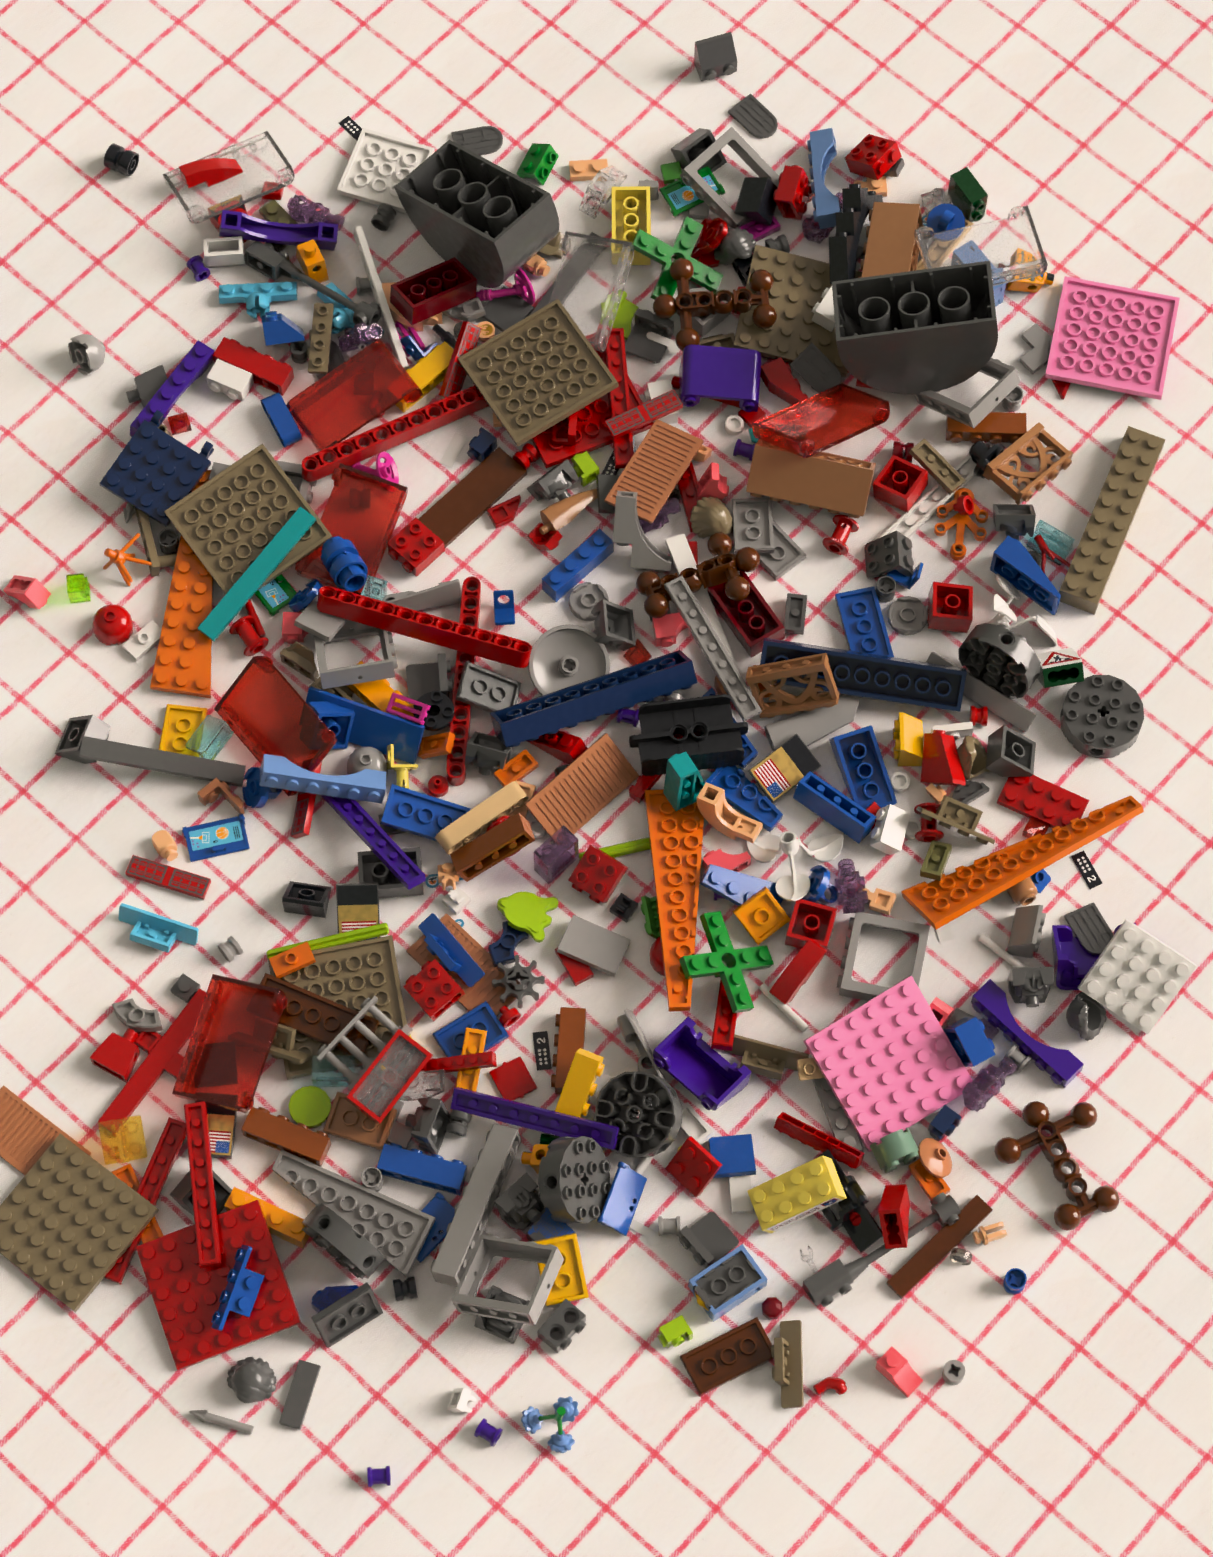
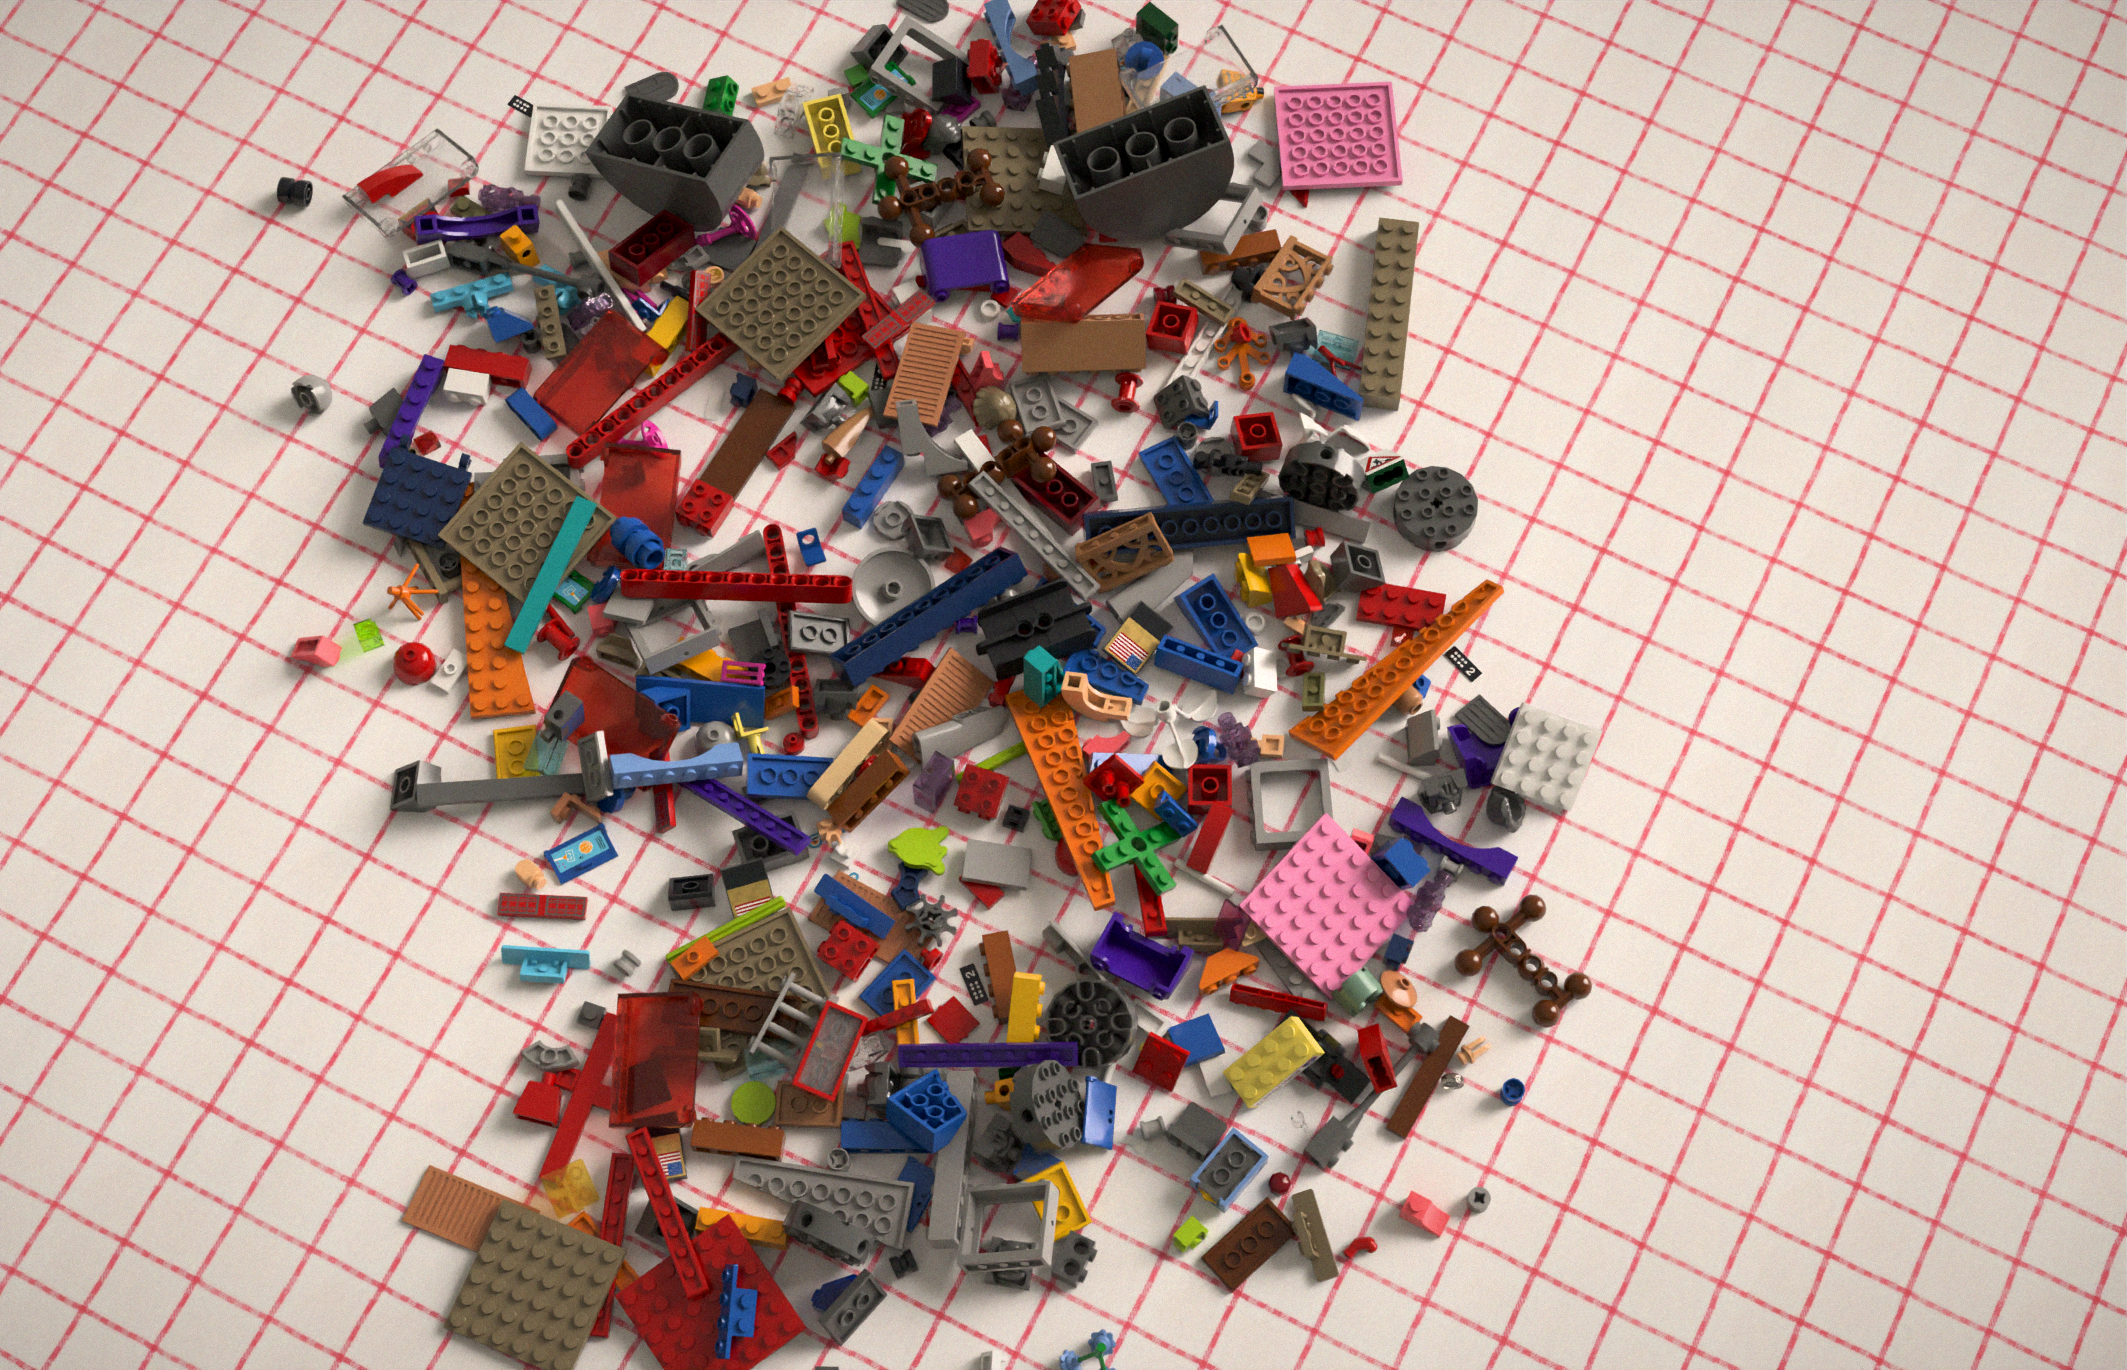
camera: 15 degrees left, 0 degrees up
(232, 709) = (563, 718): none -> dark grey torso
(249, 761) = (595, 767): none -> light grey tile
(463, 1155) = (927, 1112): none -> blue wedge
(593, 816) = (960, 734): none -> light grey panel
(722, 894) = (1113, 780): none -> red plate
(771, 941) = (1174, 814): none -> blue bracket
(778, 1097) = (1225, 969): none -> orange slope
(794, 1057) = (1231, 924): none -> clear pink piece
(914, 625) = (1228, 464): none -> black torso
(929, 651) = (1249, 487): none -> dark tan tile
(932, 716) = (1271, 549): none -> orange tile

